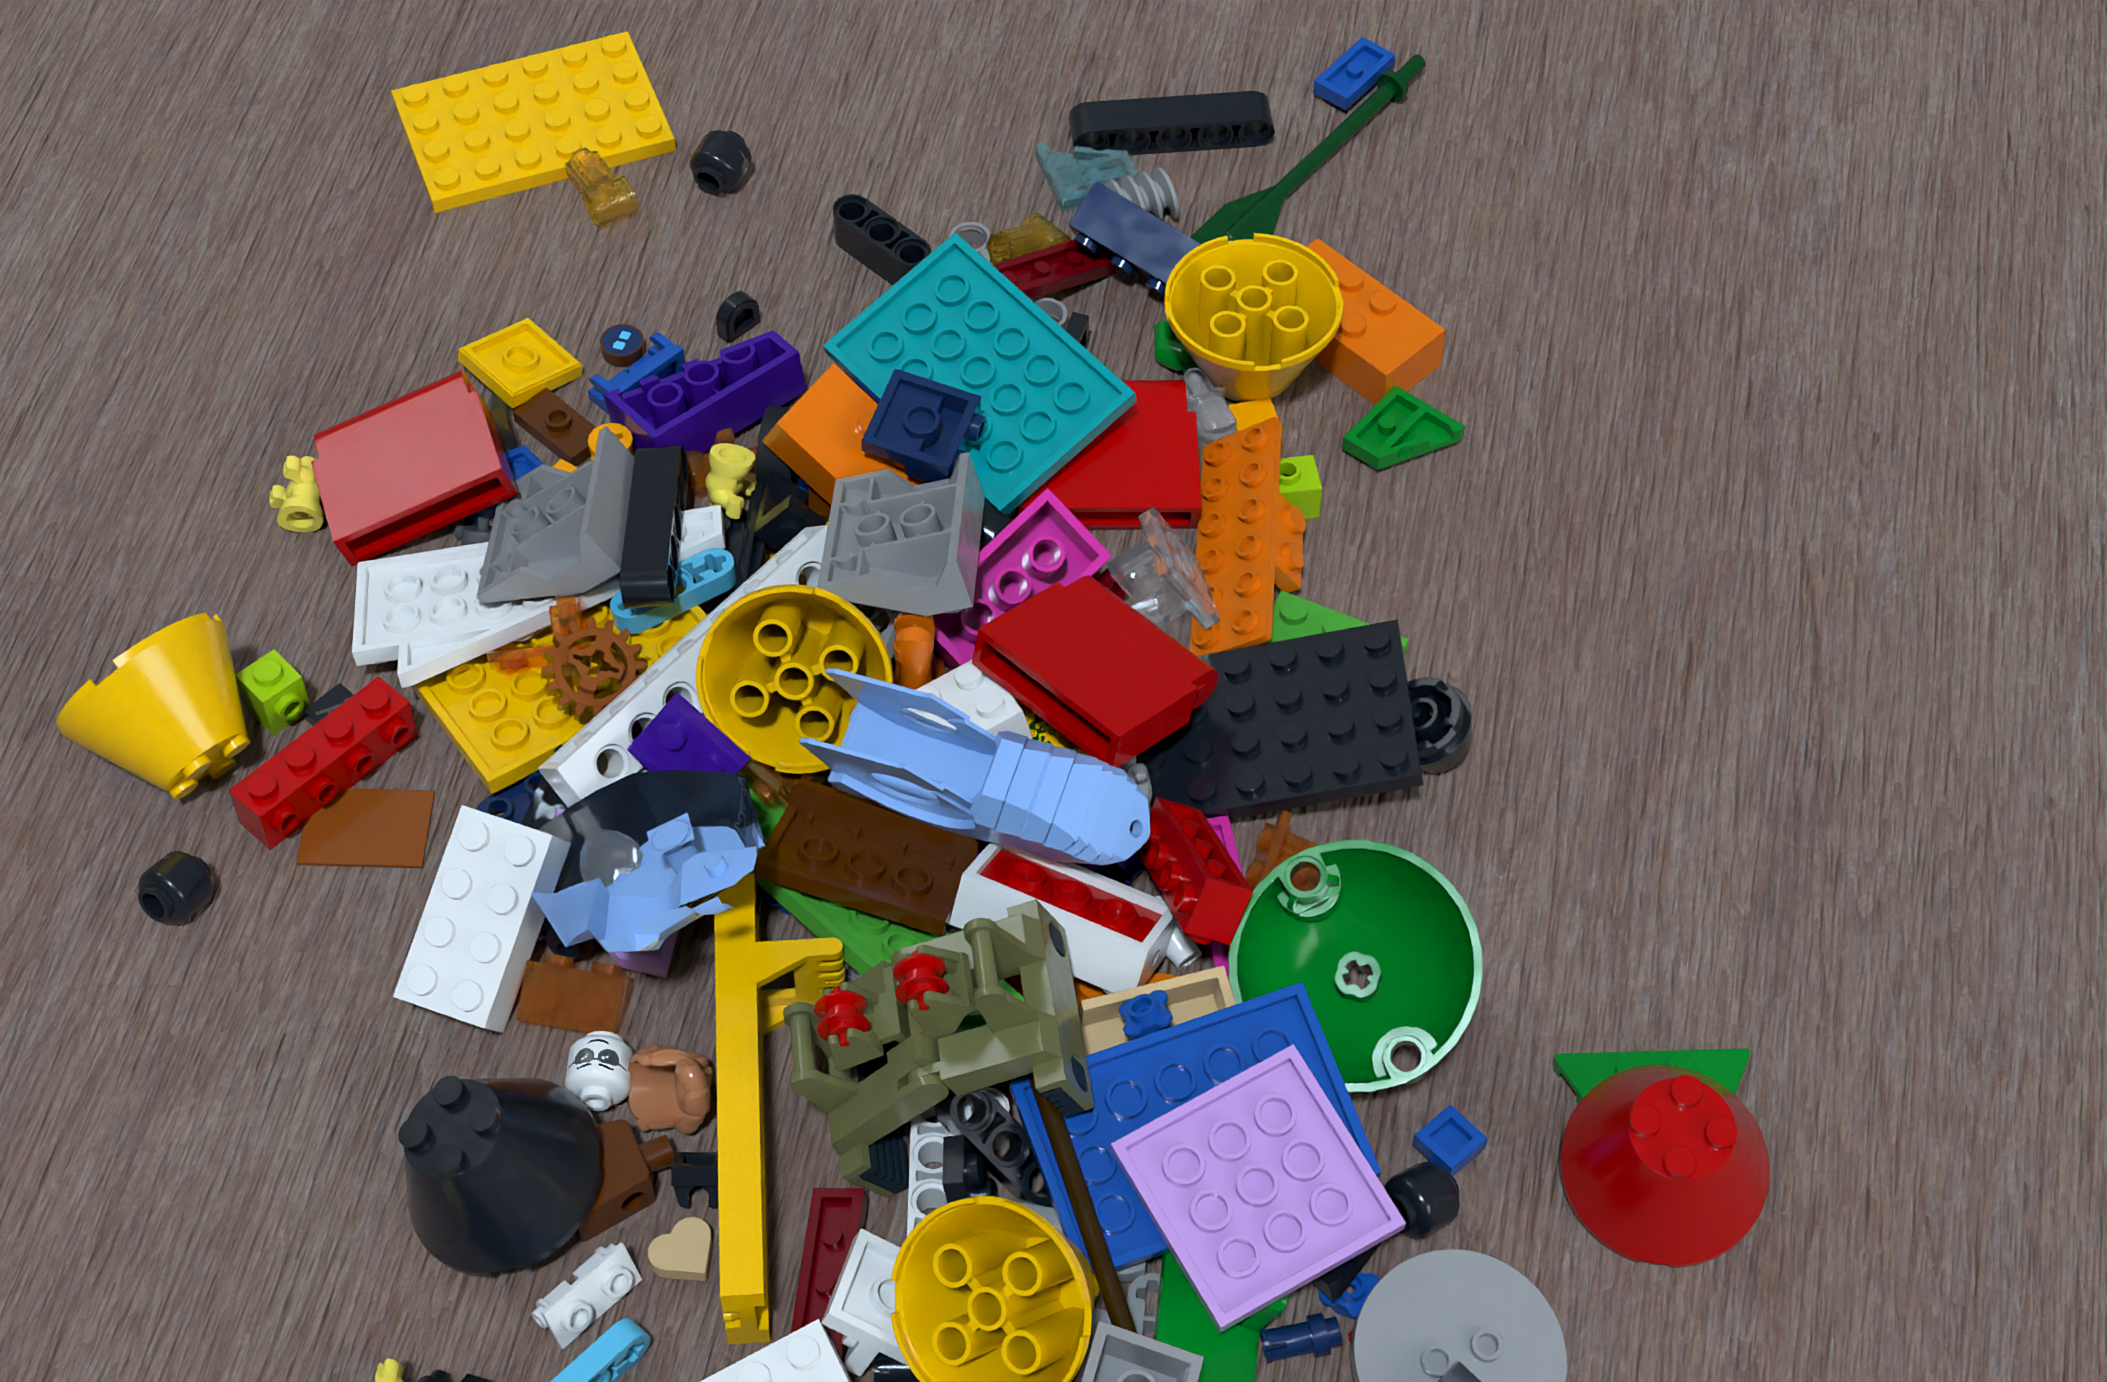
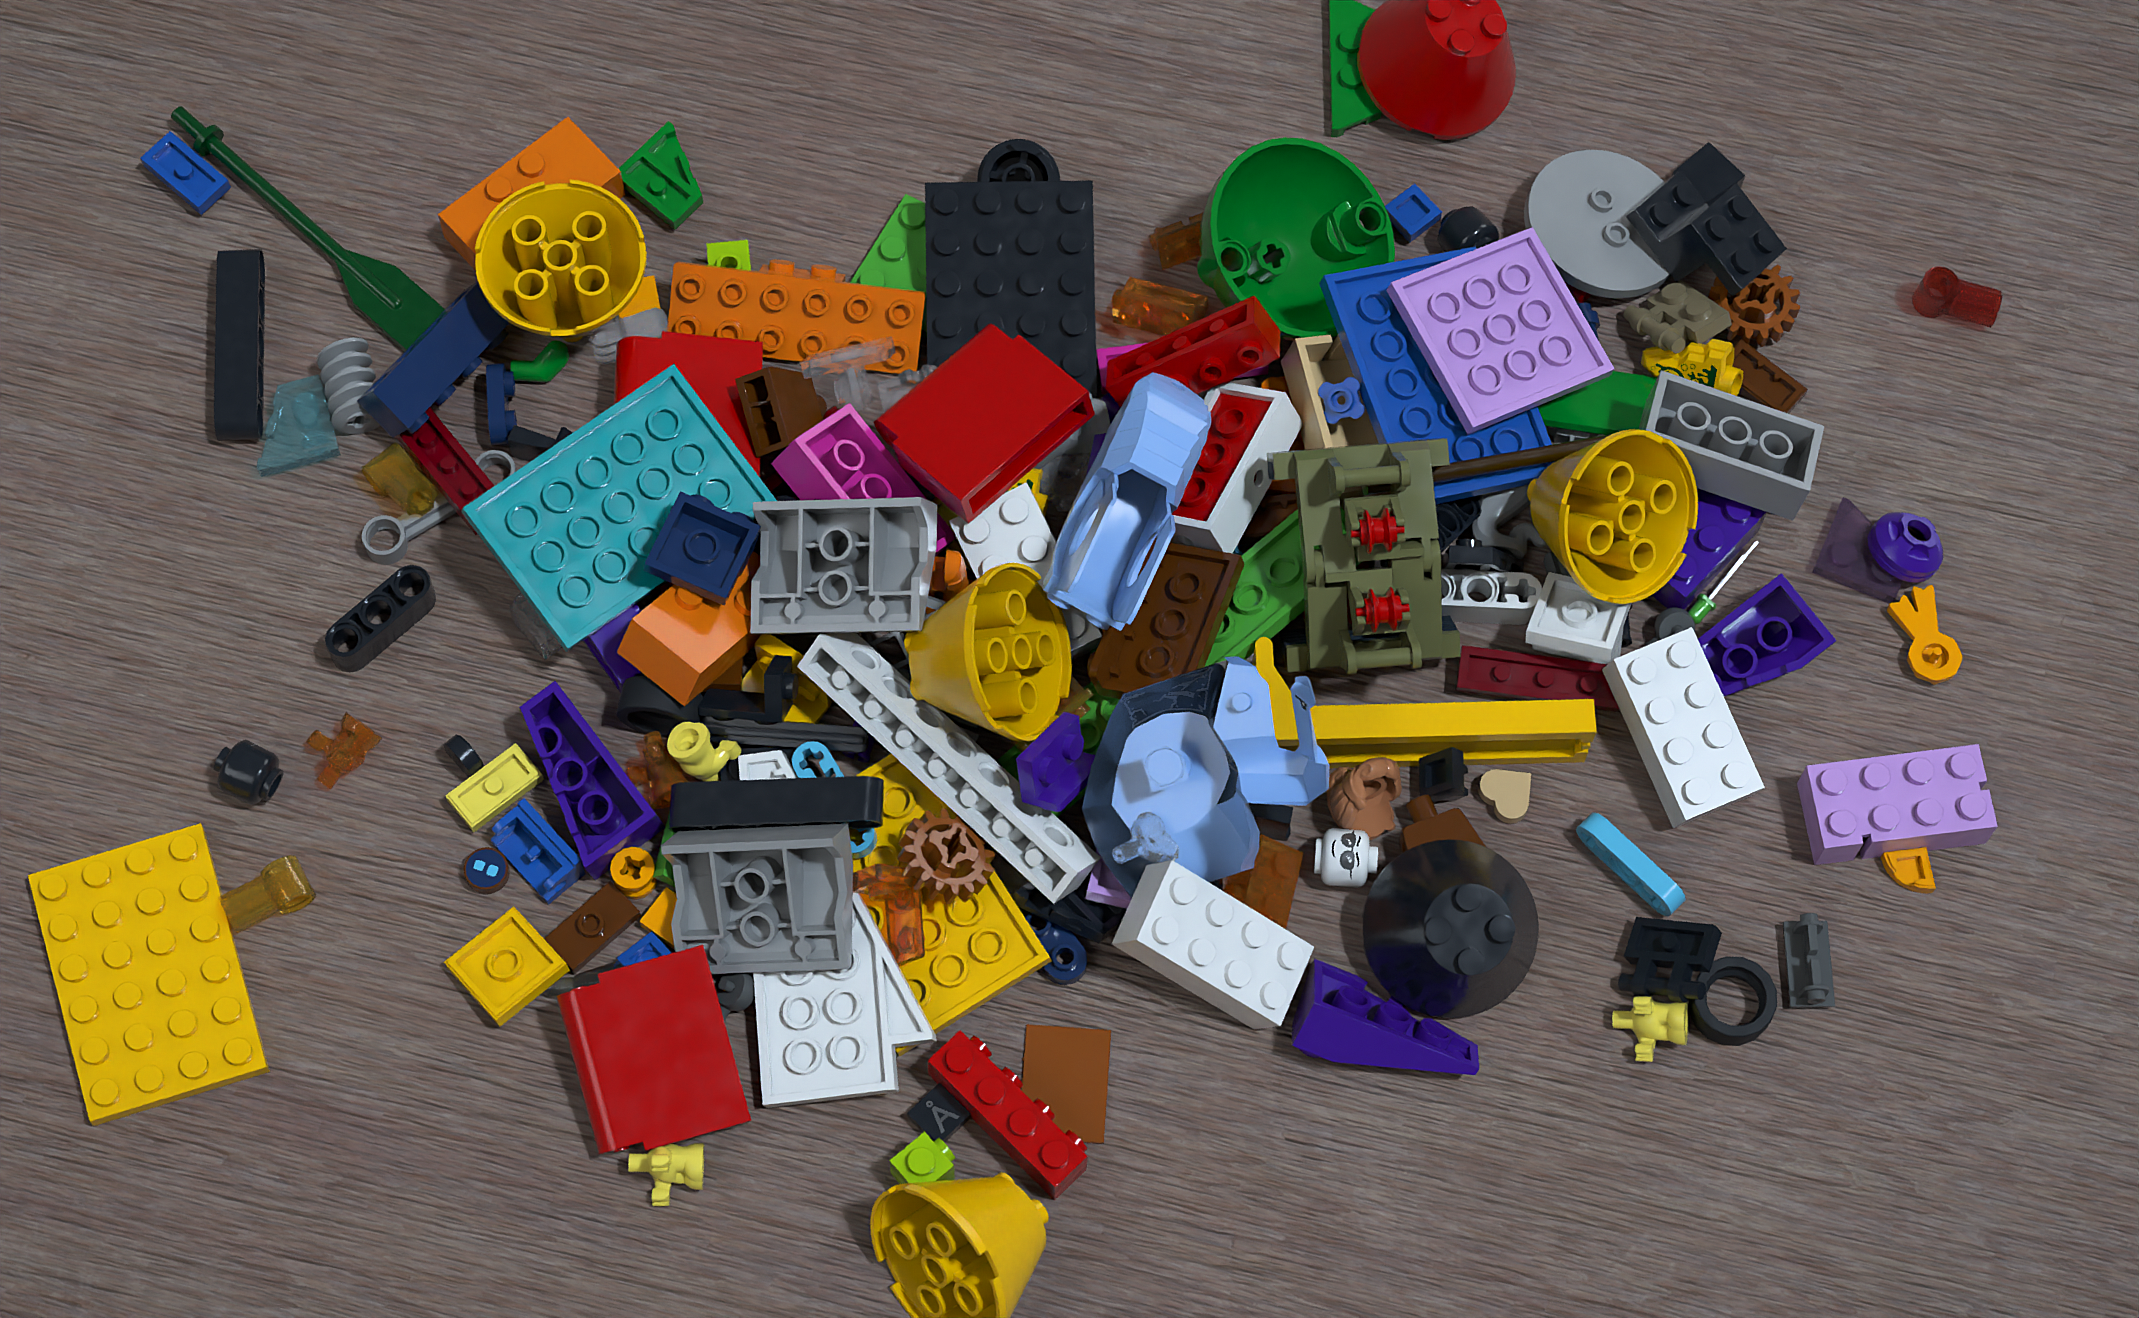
camera: 90 degrees left, 15 degrees up
(175, 887) = (1142, 1240): black head -> none
(392, 1071) = (1356, 1027): none -> dark purple wedge
(597, 1287) = (1560, 878): white hinge -> none
(656, 1000) = (1273, 820): none -> black tile
(698, 333) = (494, 787): none -> light yellow plate
(748, 232) = (344, 751): none -> clear orange piece
(1112, 511) = (778, 407): none -> reddish brown torso
(1122, 313) = (500, 387): none -> dark blue plate

